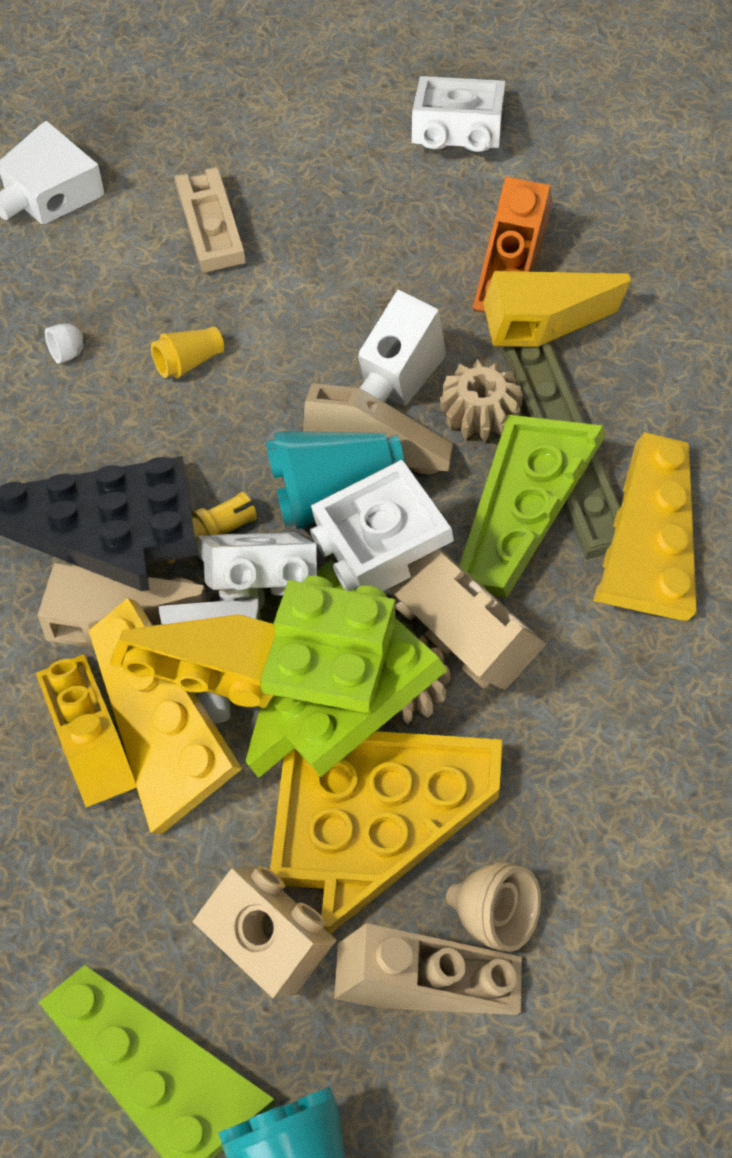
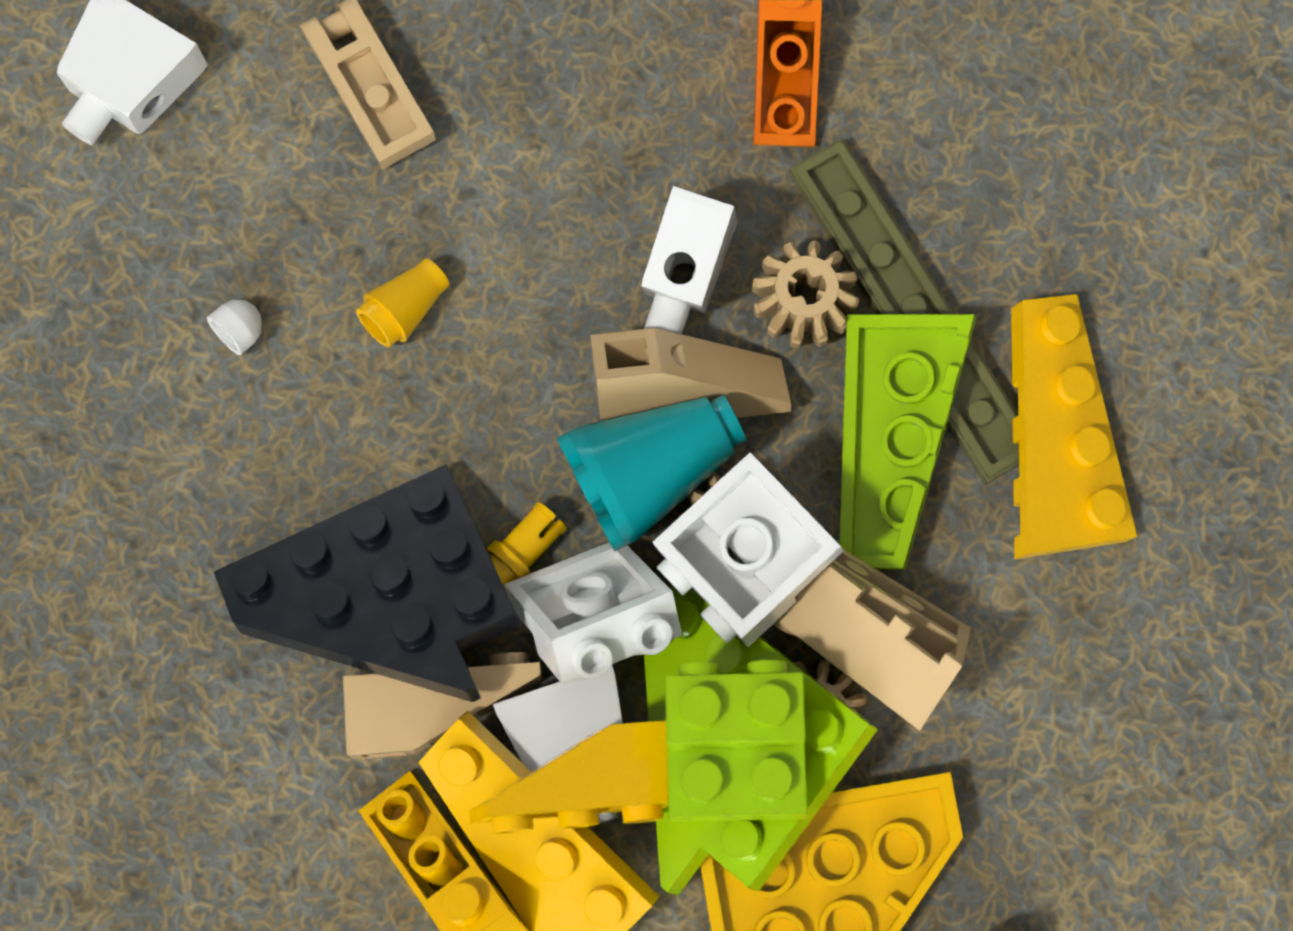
camera: 15 degrees left, 20 degrees up
(546, 305) = (841, 145): yellow slope -> none

